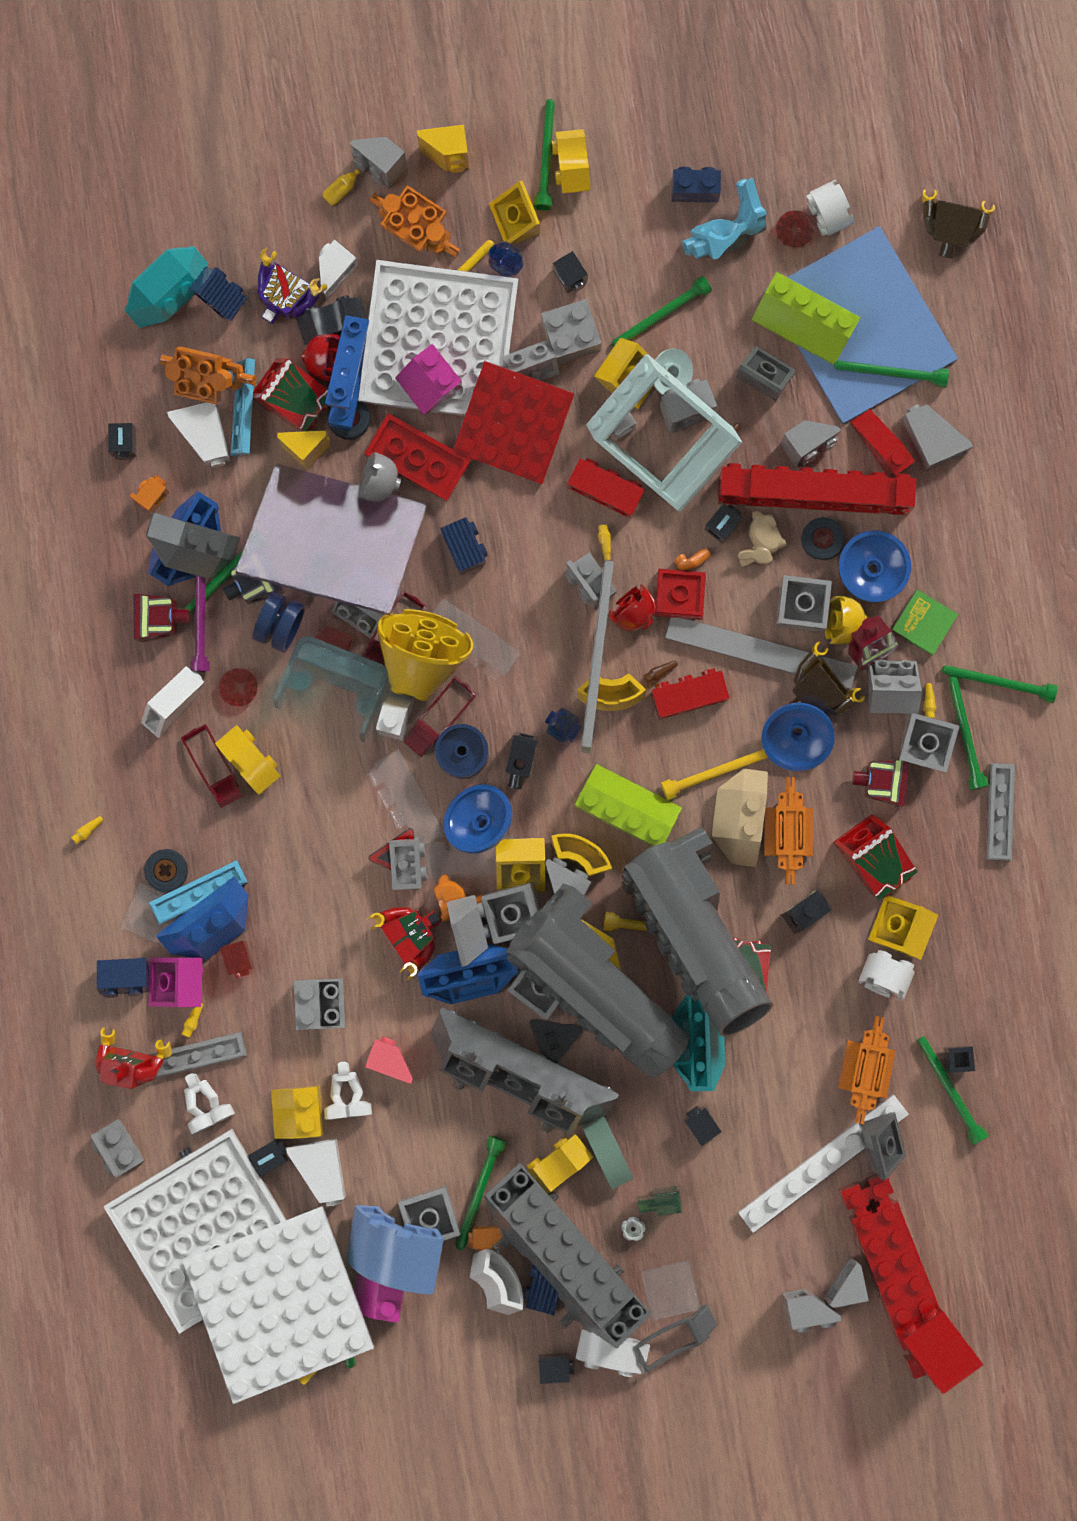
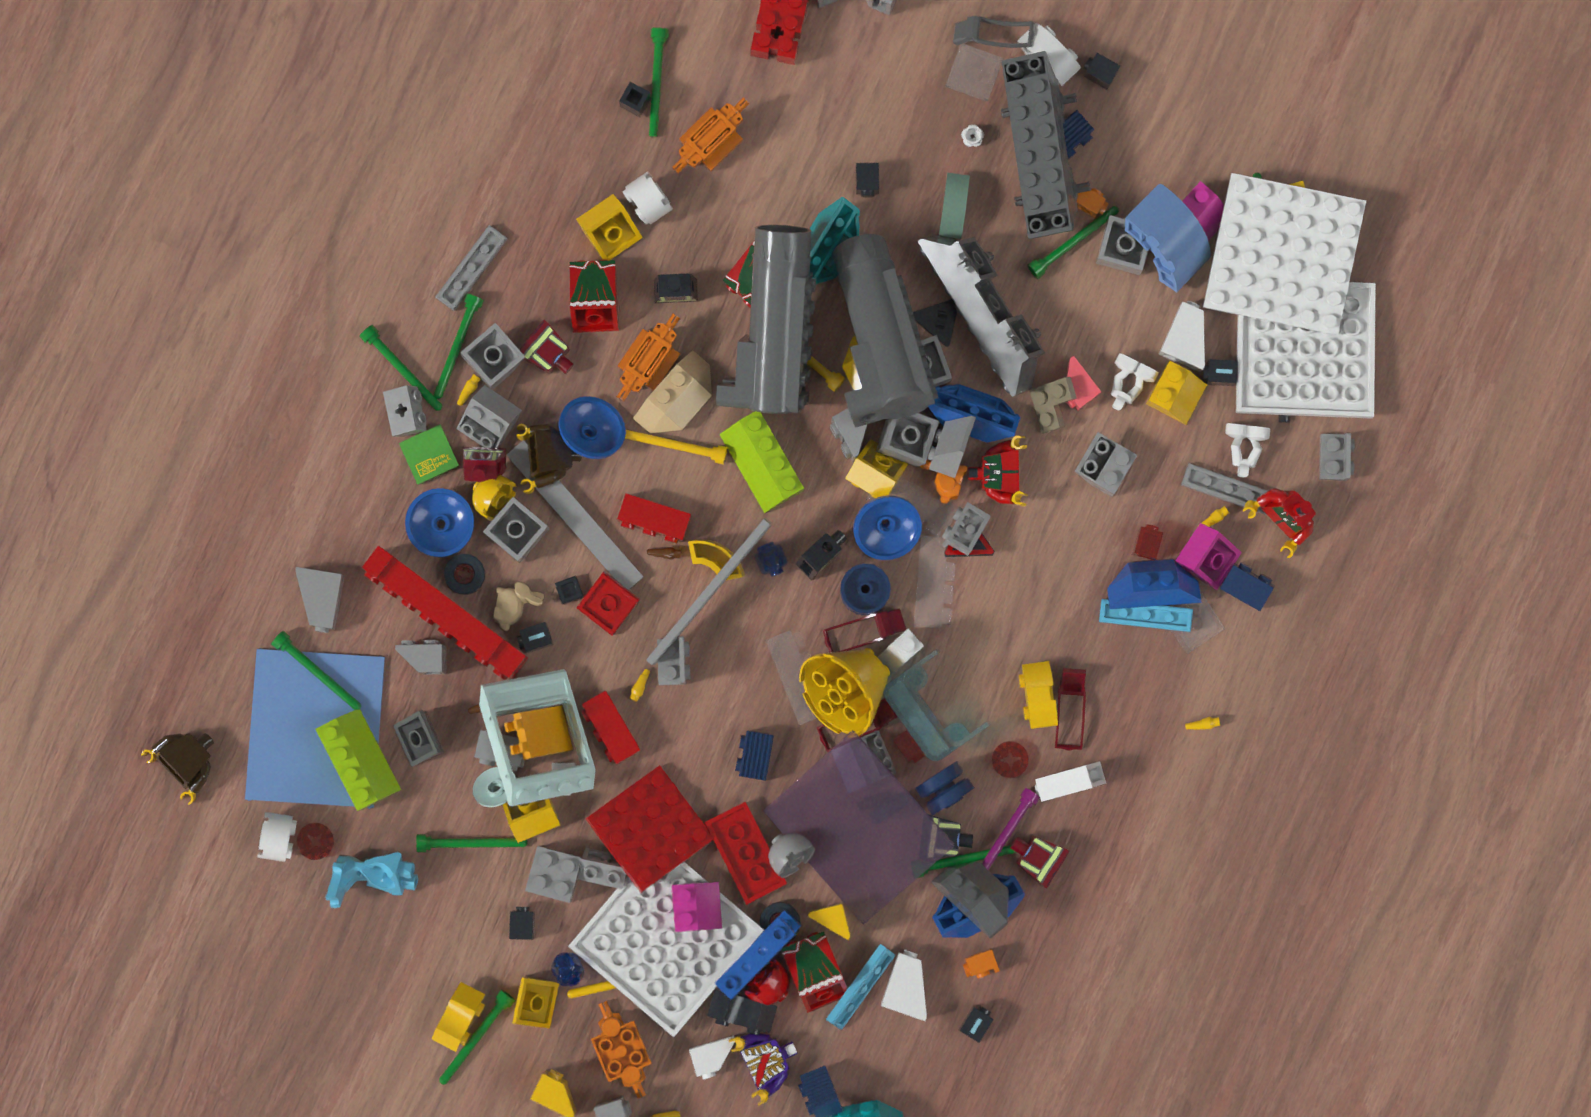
camera: 150 degrees left, 0 degrees up
(178, 871) = (1153, 659): black bush -> none
(203, 374) = (876, 1032): orange piece -> none
(408, 1026) = (1047, 402): none -> dark tan plate
(498, 1282) = (1103, 162): white brick -> none
(560, 1163) = (997, 220): yellow brick -> none
(582, 852) = (822, 448): yellow brick -> none
(634, 610) = (653, 614): red cylinder -> none
(663, 439) = (540, 732): none -> light orange tile
(663, 1201) = (936, 141): clear green piece -> none
(694, 561) = (580, 622): orange arm -> none
(696, 185) = (371, 929): dark blue brick -> none
(722, 584) = (569, 590): none -> black tile
(814, 1169) = (793, 90): white plate -> none
(883, 444) = (365, 618): red slope -> none
(883, 1144) = (737, 73): dark grey slope -> none
(972, 644) = (405, 411): none -> light grey brick

